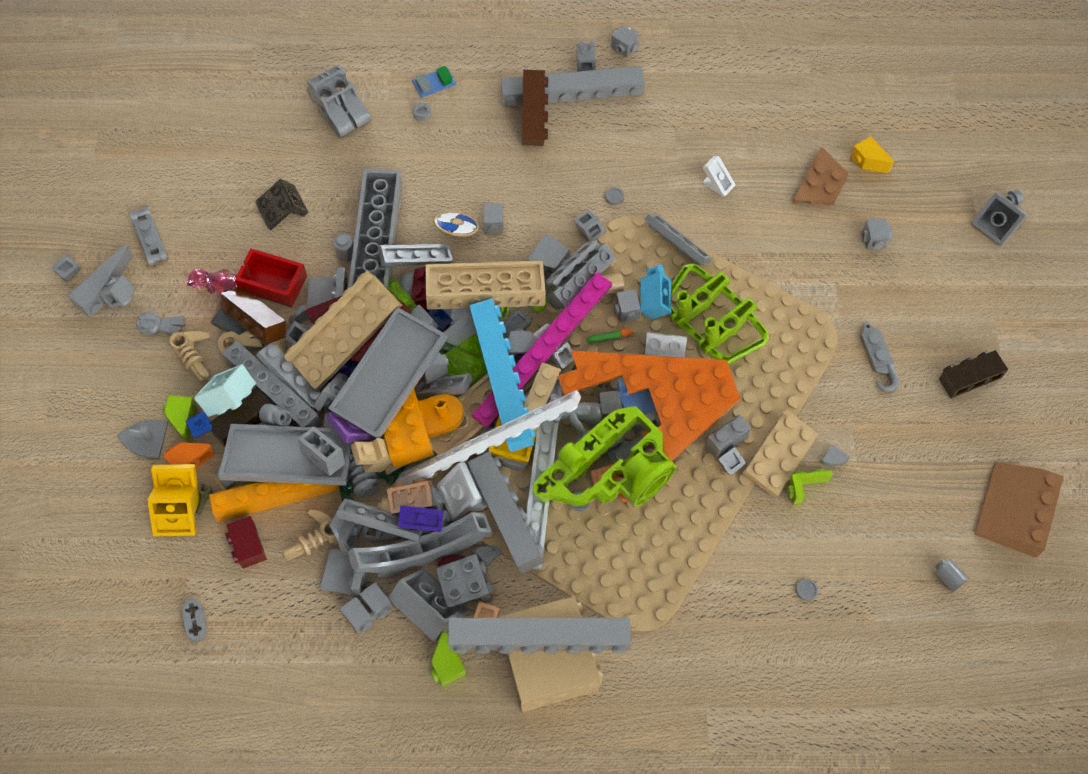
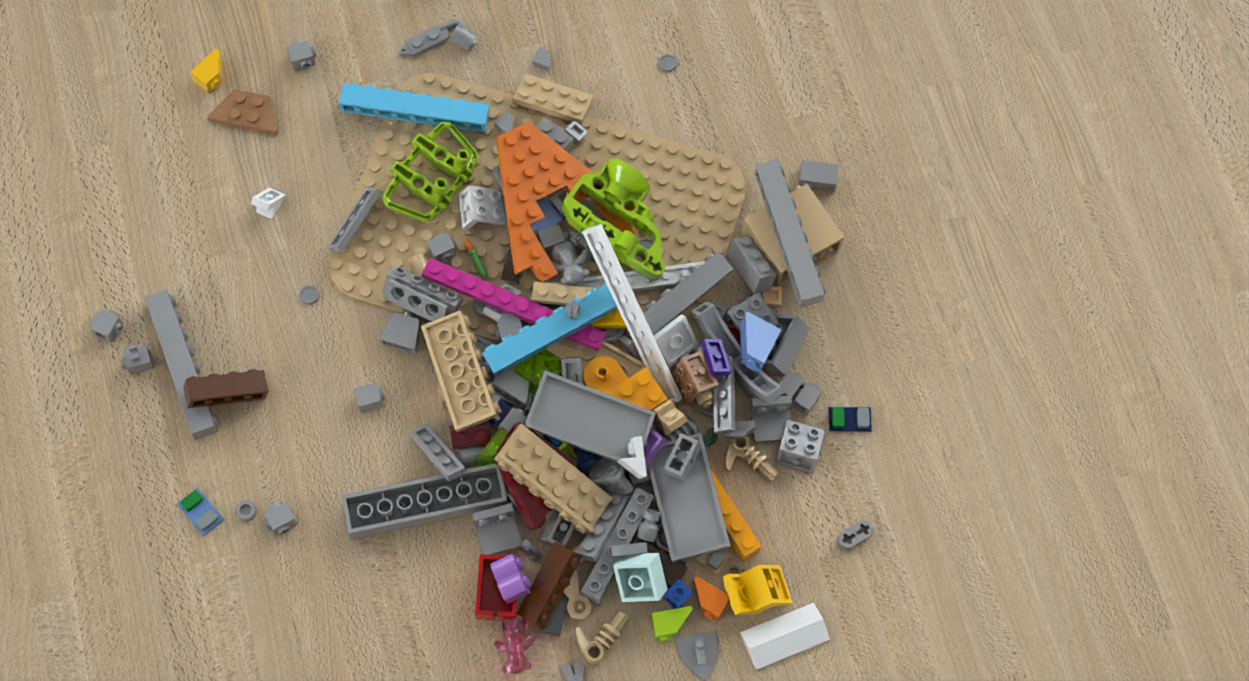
camera: 110 degrees left, 5 degrees up
(125, 520) = (785, 636): none -> white slope
(246, 542) = (773, 514): dark red brick -> none
(255, 386) = (628, 549): none -> light grey beam
(267, 278) = (510, 578): none -> medium lavender brick
(280, 202) = (404, 615): clear smoke bracket -> none
(309, 592) = (800, 446): none -> light grey bracket
(322, 659) = (850, 419): none -> piece
(330, 402) = (636, 463): none -> white slope
(342, 107) = (259, 596): light grey connector -> none
(344, 247) = (441, 530): light grey brick -> none
(403, 131) = (279, 518): none -> light grey brick
(424, 566) = (756, 341): none -> slope
(446, 663) = (823, 315): lime slope -> none
(456, 224) = (385, 430): shield -> none
(507, 382) = (573, 309): none -> light grey plate
(523, 597) = (751, 264): none -> light grey brick
(589, 225) = (349, 309): light grey brick -> none
(619, 713) = (818, 175): none -> light grey brick
(655, 293) = (422, 225): medium azure brick -> none
(758, 398) = (505, 122): none -> light grey tile
(792, 316) = (413, 107): none -> medium azure brick
(796, 482) = (580, 82): lime bracket -> none
(871, 382) = (463, 38): none -> light grey brick

